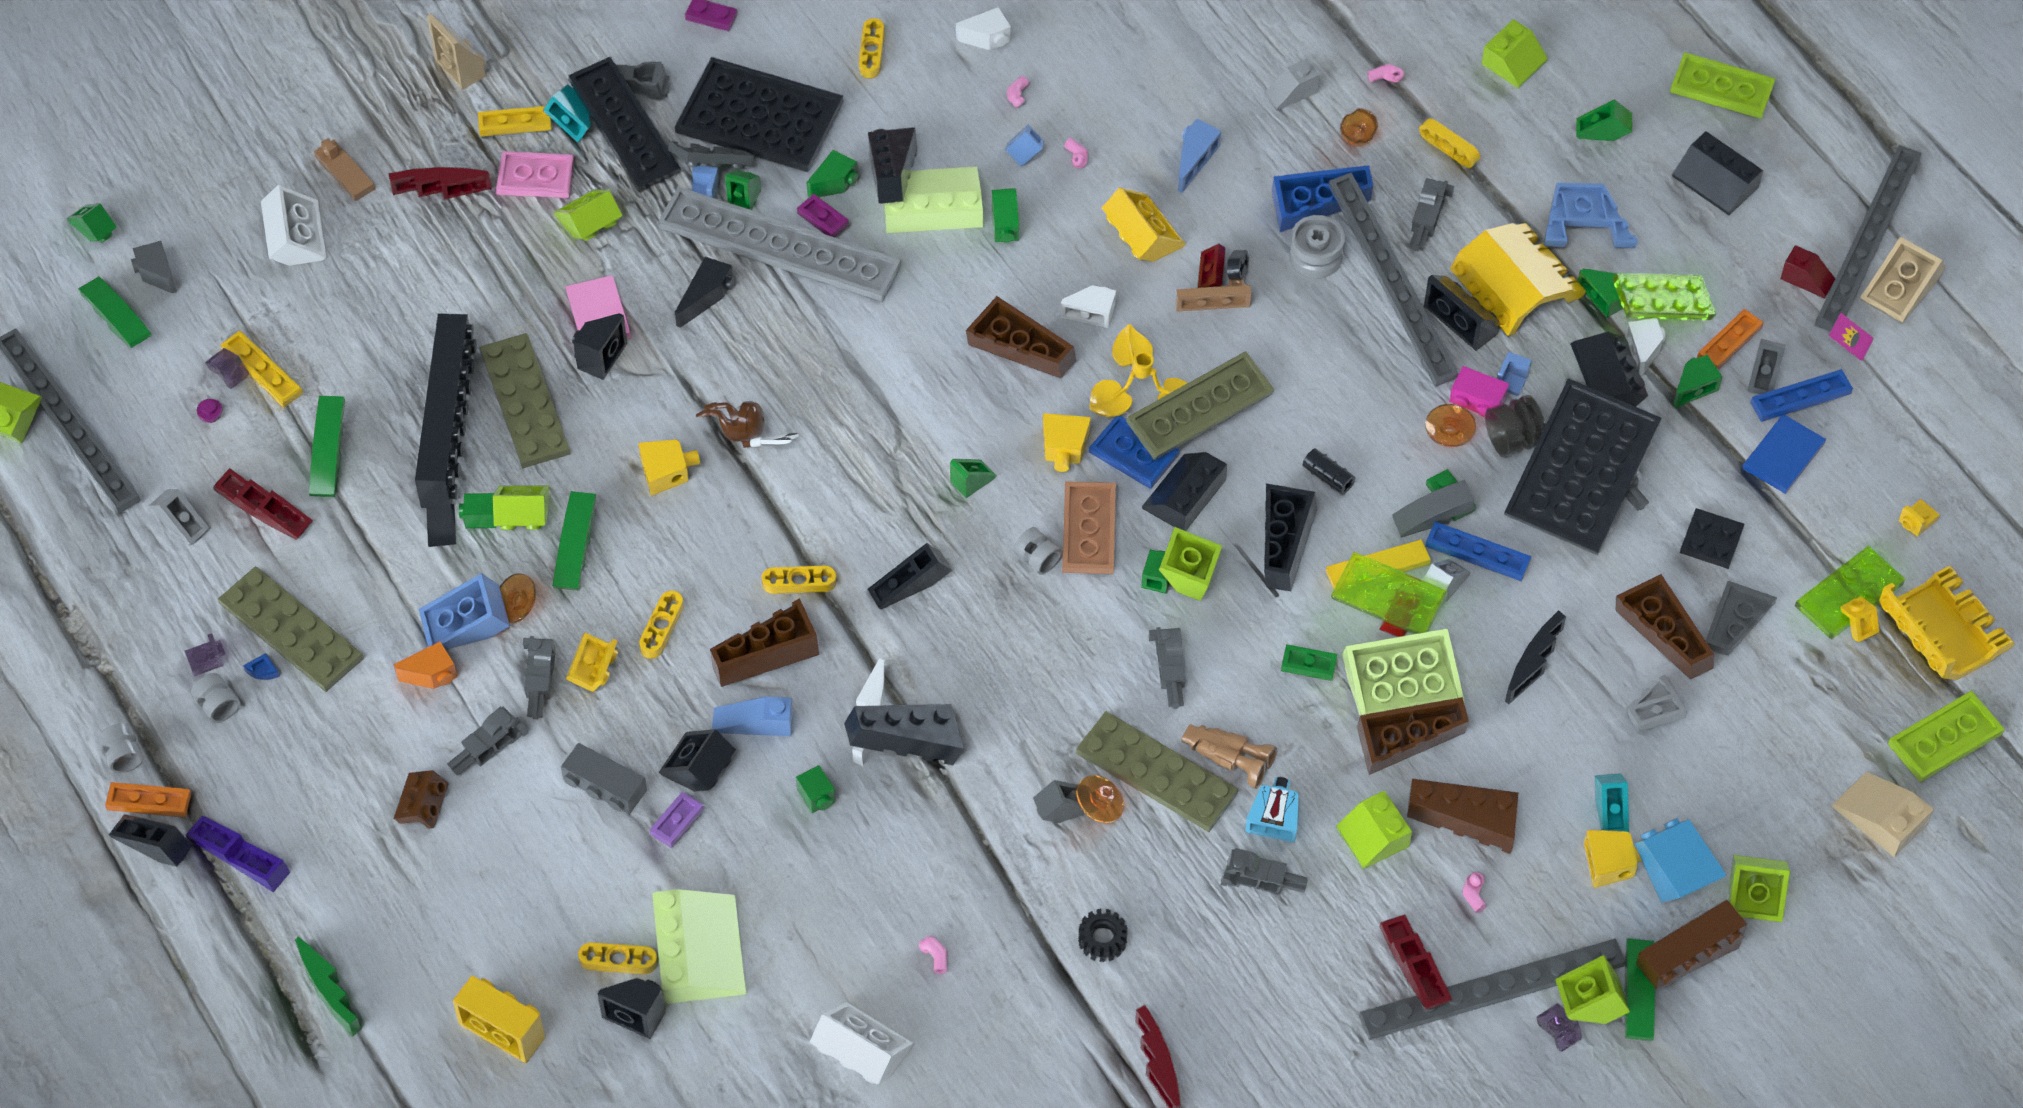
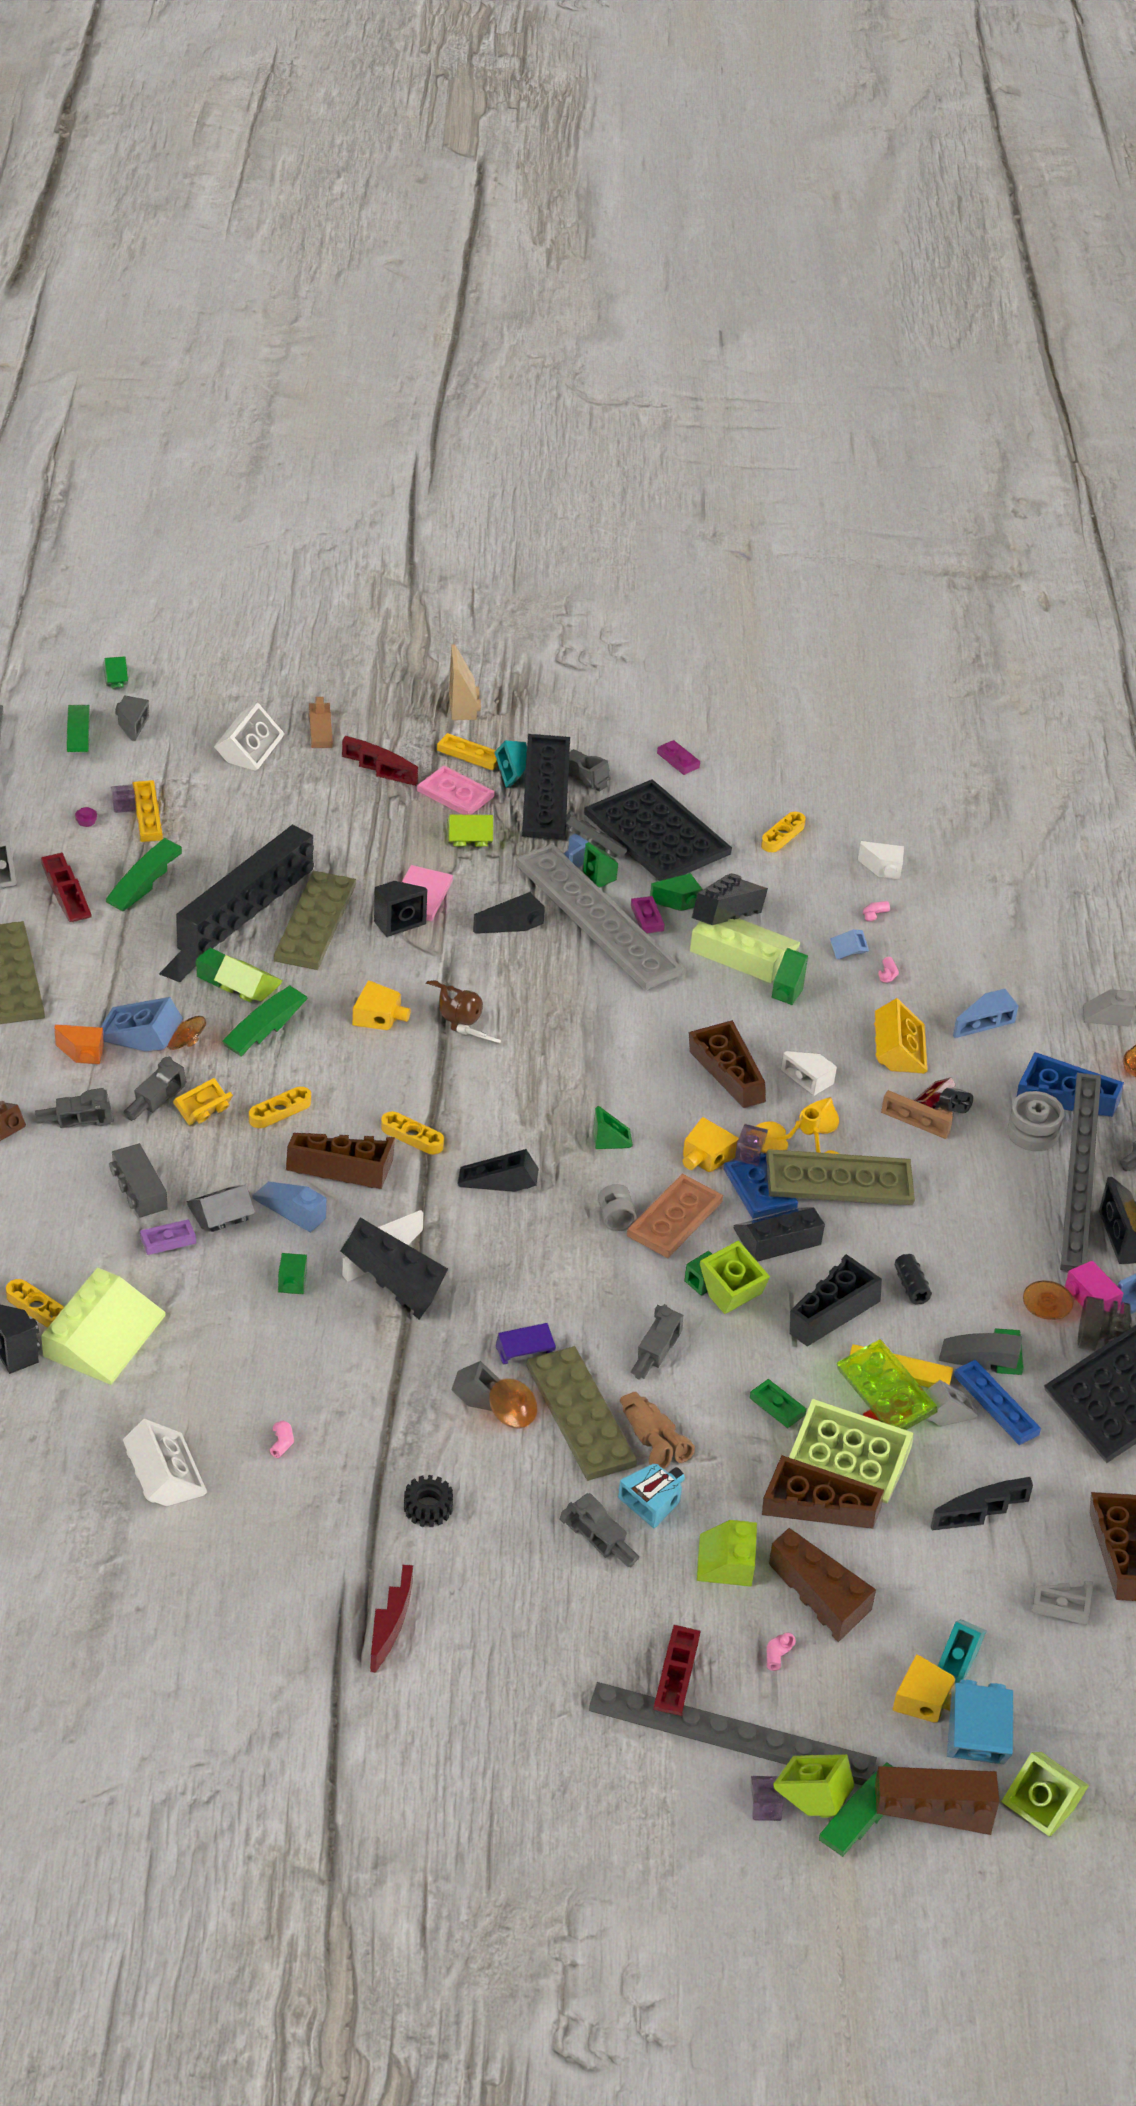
camera: 30 degrees right, 15 degrees down
(1065, 735) = (524, 1342): none -> dark purple hinge
(1104, 416) = (750, 1144): none -> bracket

